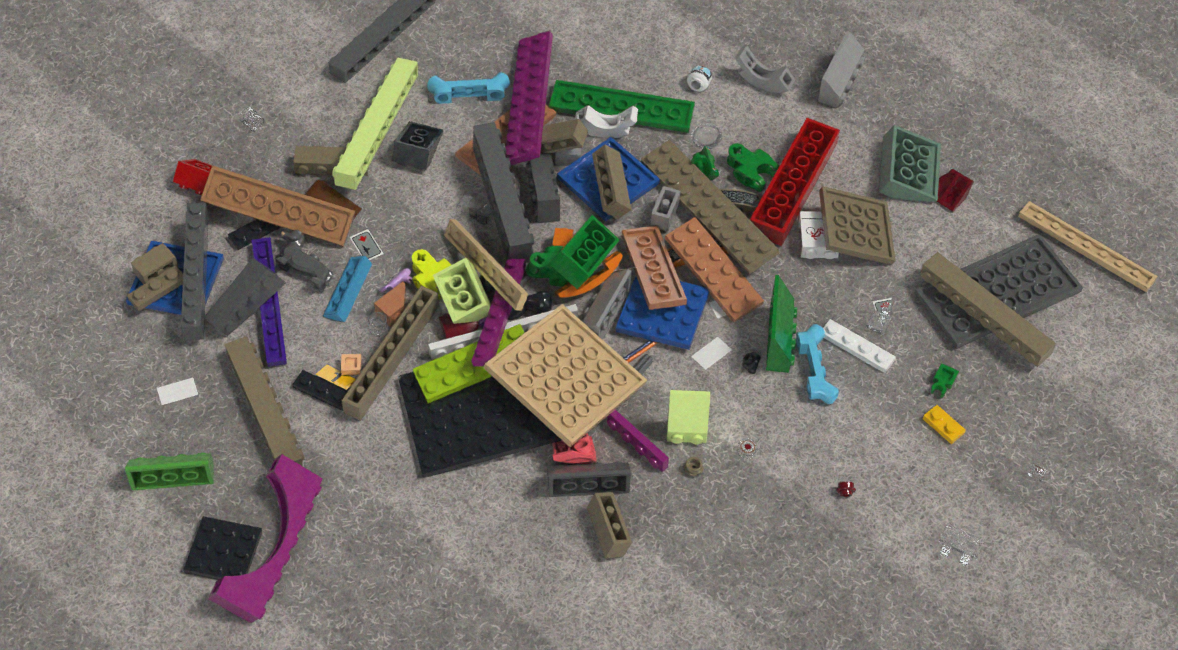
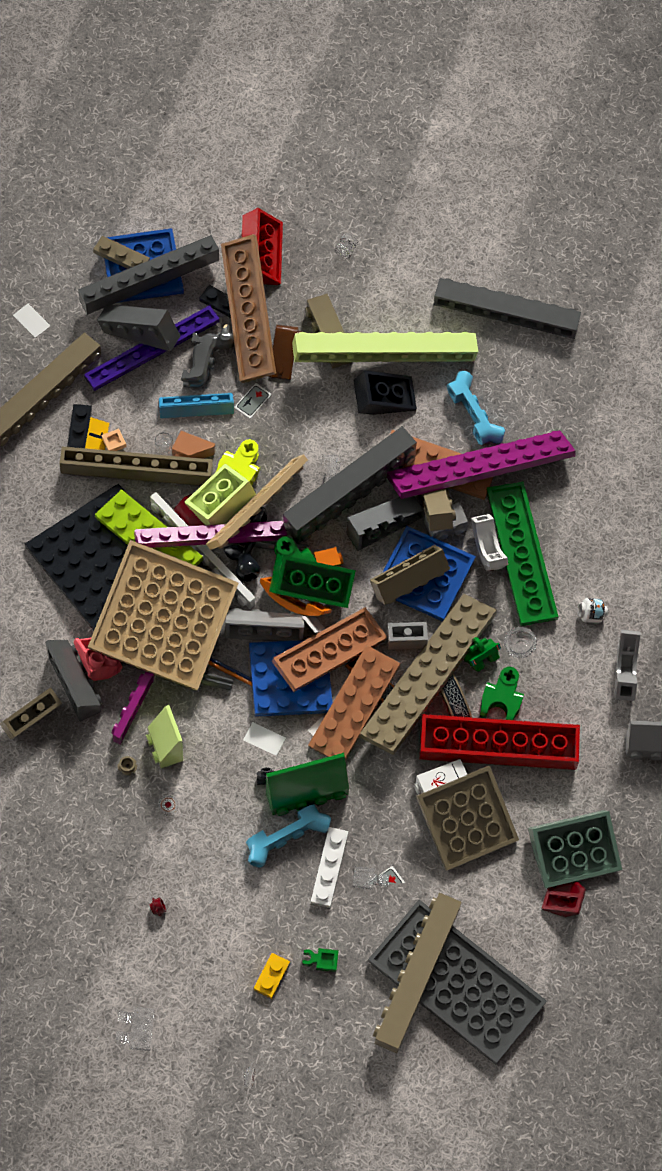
camera: 65 degrees right, 10 degrees up
(153, 263) = (142, 240): dark tan brick -> none
(403, 275) = (227, 442): lavender piece -> none
(1087, 246) = (555, 1055): tan plate -> none

